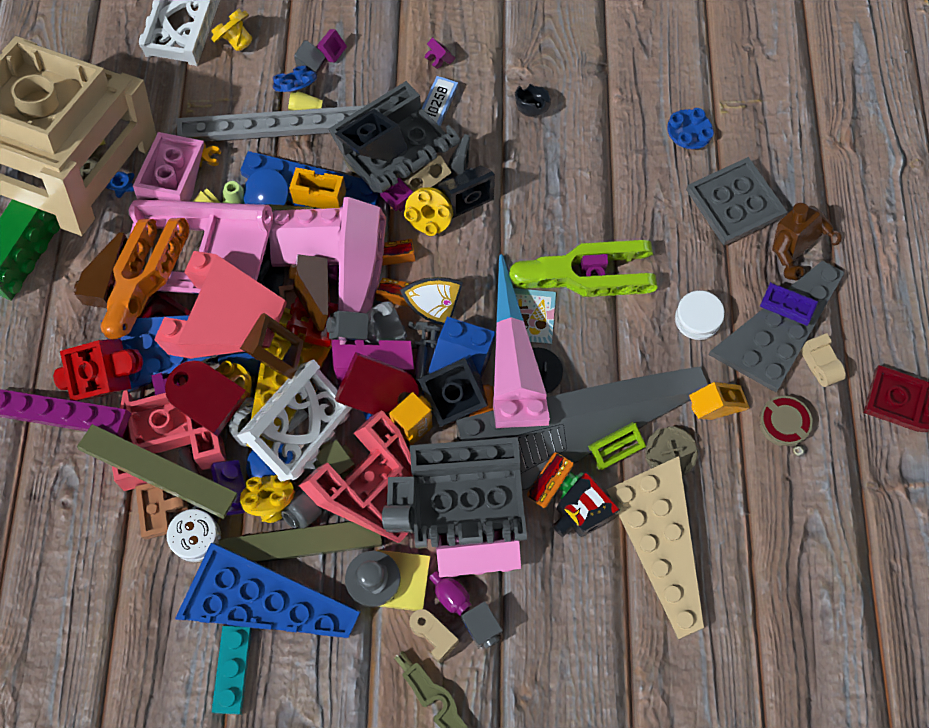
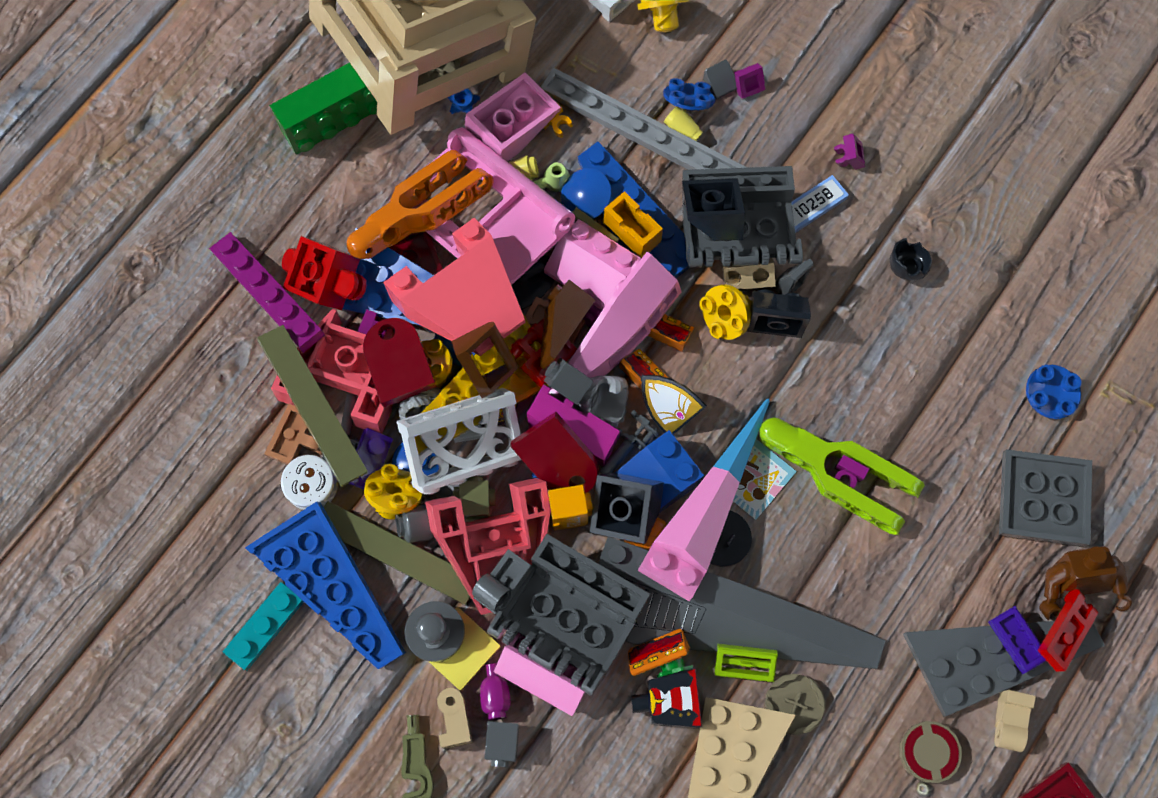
camera: 35 degrees right, 5 degrees up
(98, 277) = (377, 185): reddish brown slope -> none
(397, 195) = (708, 277): magenta tile -> none
(699, 315) = (920, 589): white head -> none
(718, 401) = (877, 687): light orange slope -> none
(816, 275) = (1068, 631): none -> red plate

